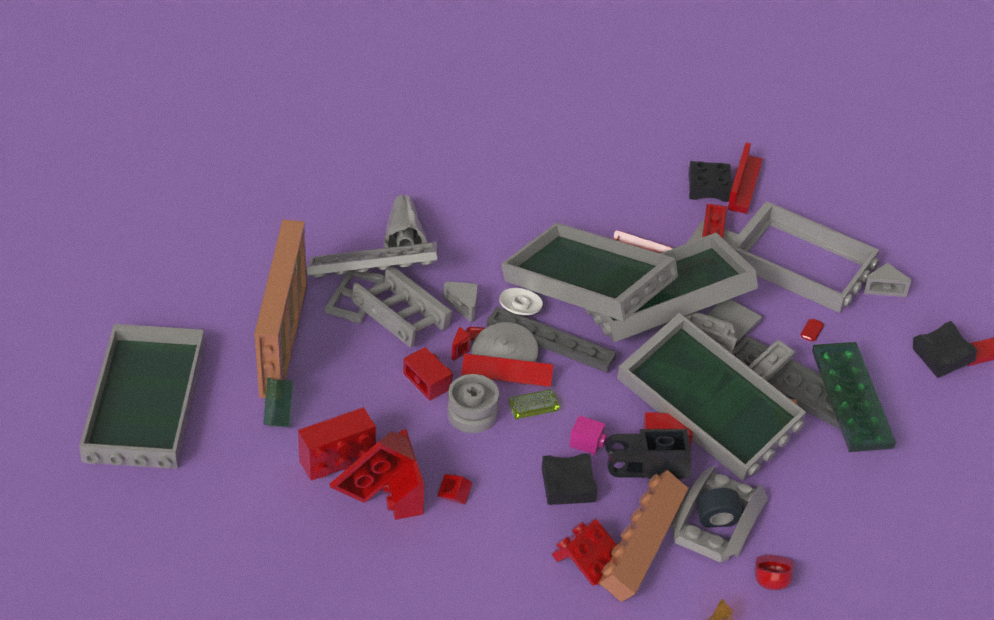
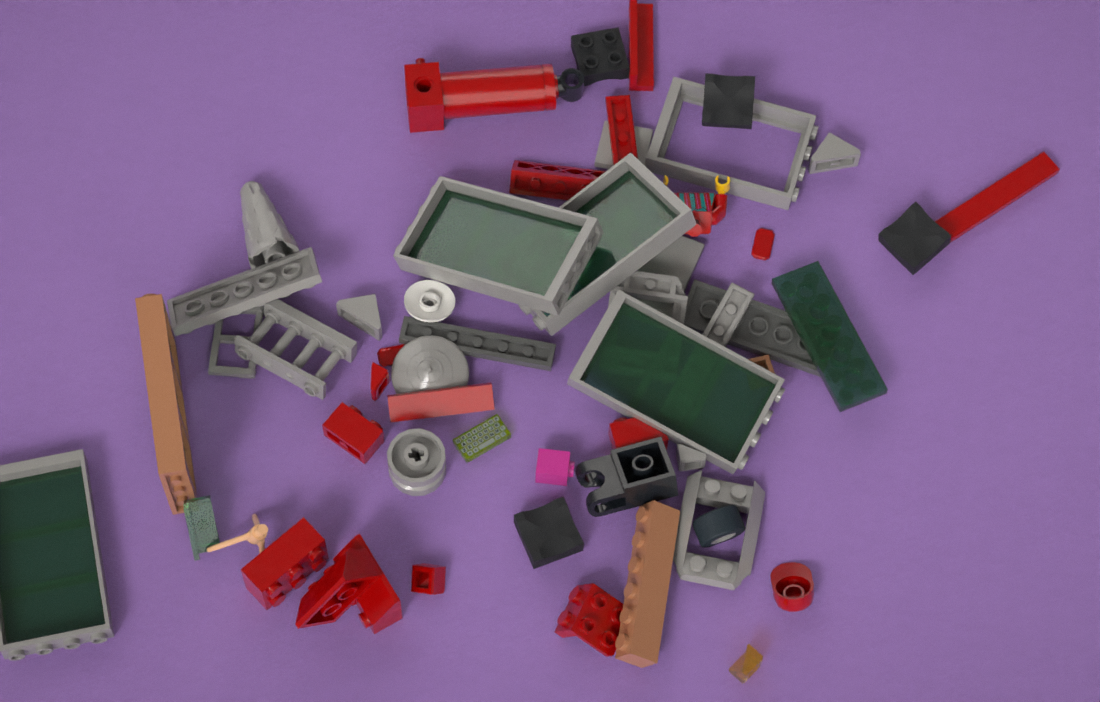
camera: 15 degrees left, 20 degrees up
(317, 415) = (255, 535): none -> light nougat plant
(609, 179) = (483, 92): none -> red piece
(708, 456) = (689, 458): none -> light grey slope
(769, 290) = (706, 207): none -> red torso
(807, 222) = (728, 101): none -> black brick

